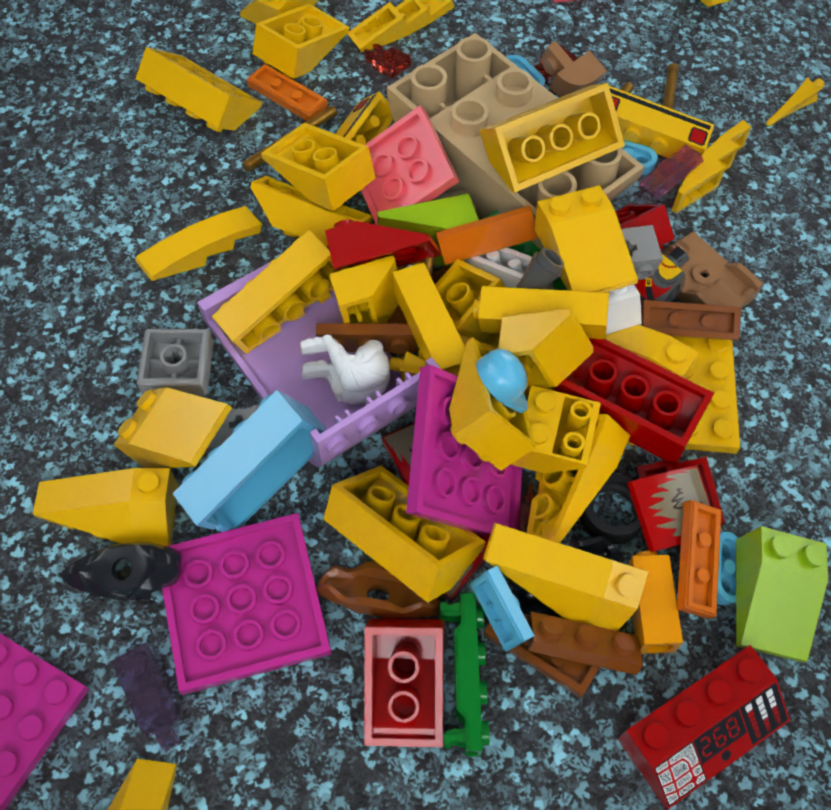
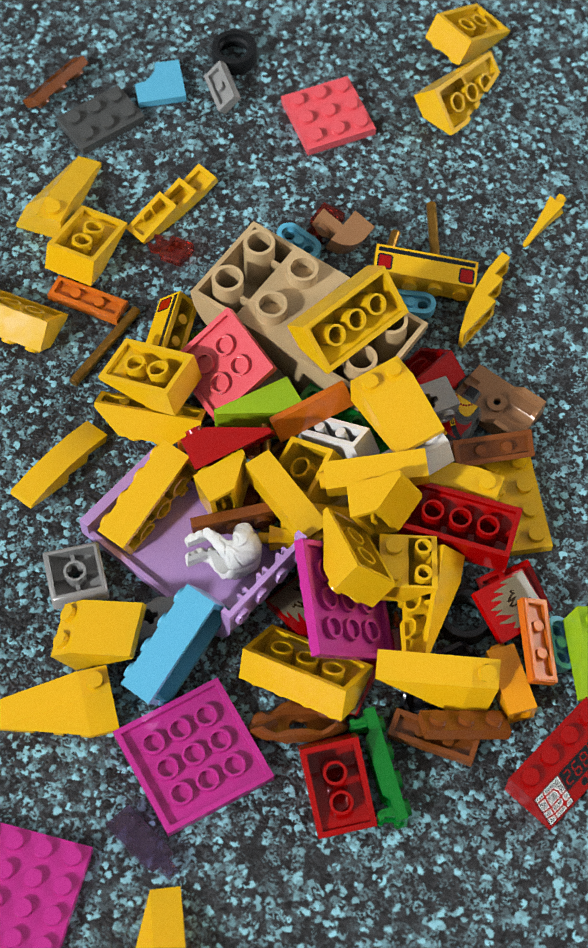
camera: 15 degrees left, 0 degrees up
(152, 569) = (117, 747): black piece -> none
(501, 608) = (397, 713): medium azure plate -> none
(504, 378) = (360, 535): medium azure cap -> none
(542, 270) = (367, 439): dark grey cone -> none
(671, 172) = (450, 314): clear pink plate -> none

